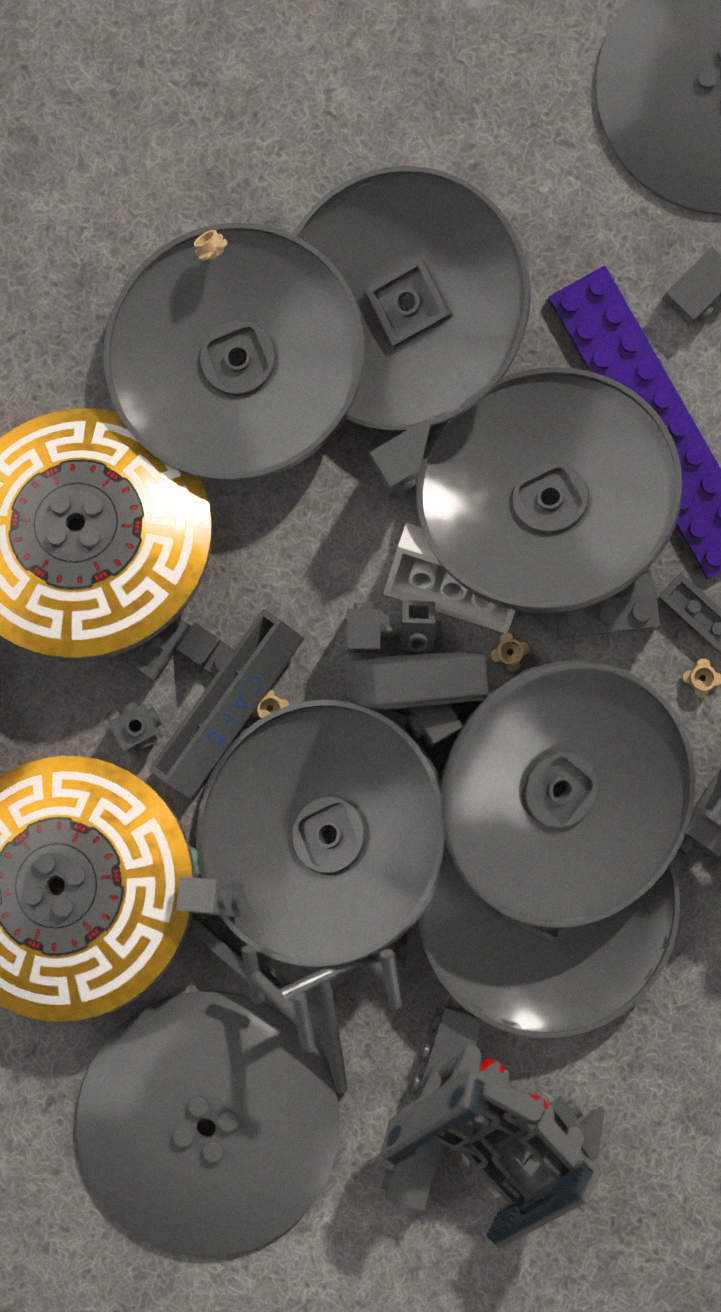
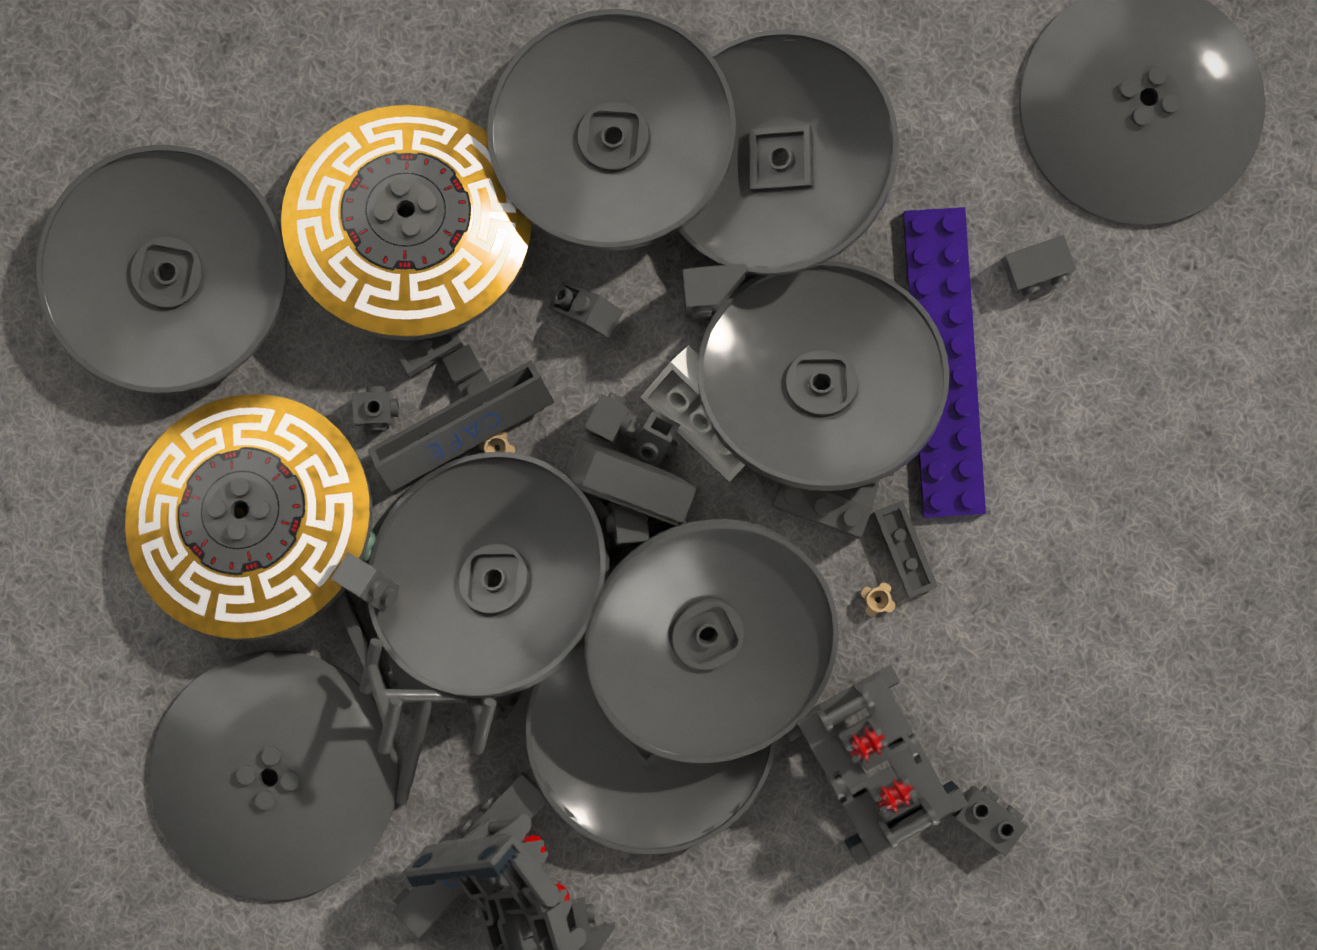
camera: 25 degrees right, 0 degrees up
(209, 245) = (634, 28): tan plate -> none
(291, 535) = (586, 309): none -> dark grey slope
(500, 653) = (726, 489): tan plate -> none

